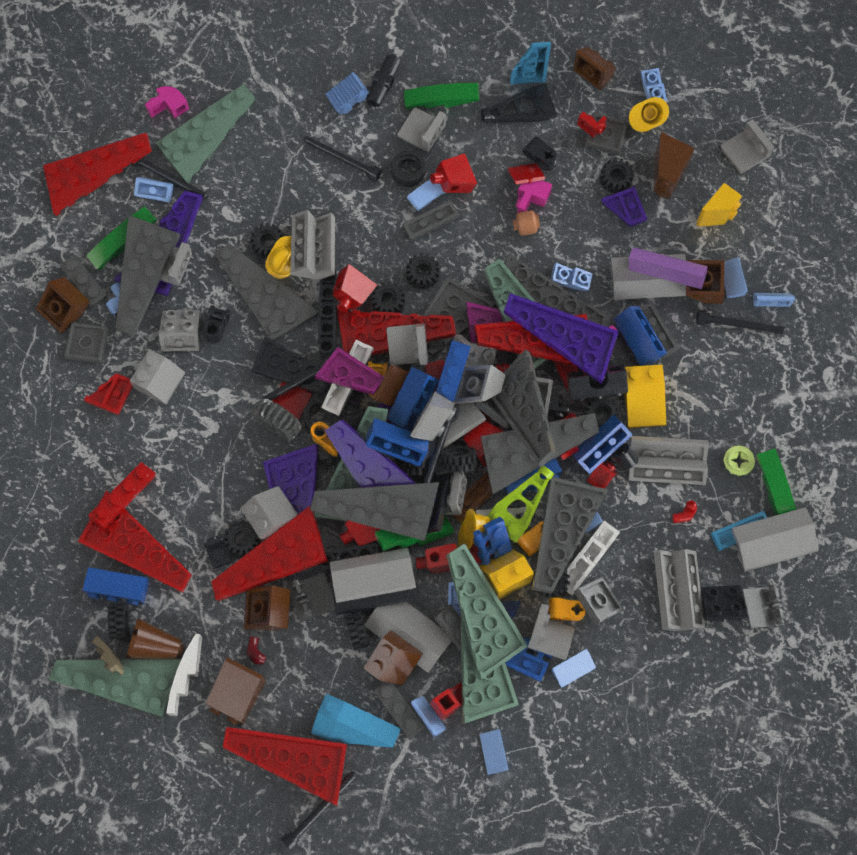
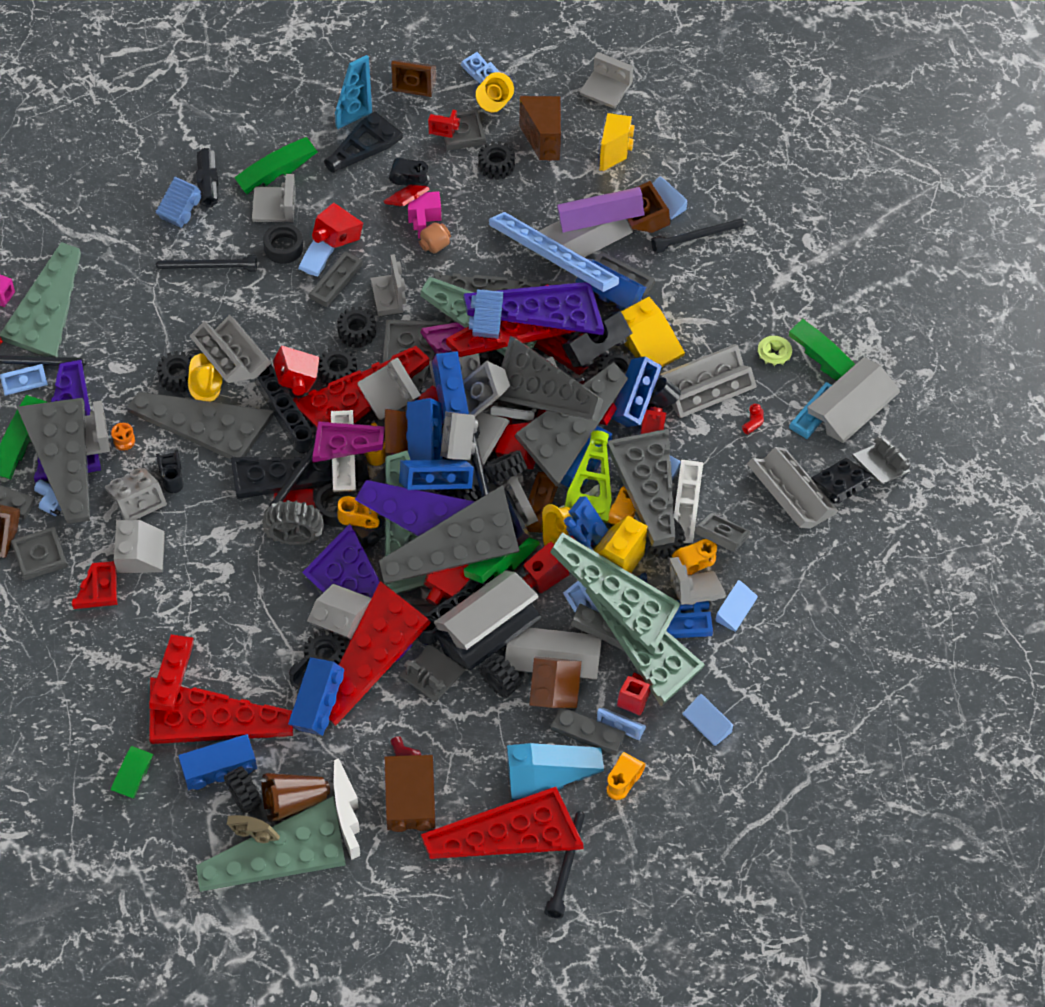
camera: 30 degrees left, 15 degrees down
(52, 559) = (132, 771): none -> green slope
(194, 273) = (126, 432): none -> orange wheel
(211, 575) = (316, 696): none -> blue brick
(267, 608) = (392, 704): reddish brown slope -> none
(406, 760) = (624, 776): none -> light orange piece
(464, 252) = (389, 290): none -> light grey bracket
(515, 322) = (487, 313): none -> medium blue brick
(571, 278) = (513, 267): light blue slope -> none
(609, 286) = (554, 251): none -> light blue tile
(626, 206) = (523, 182): dark purple wing -> none
(773, 299) = (716, 200): light blue slope -> none

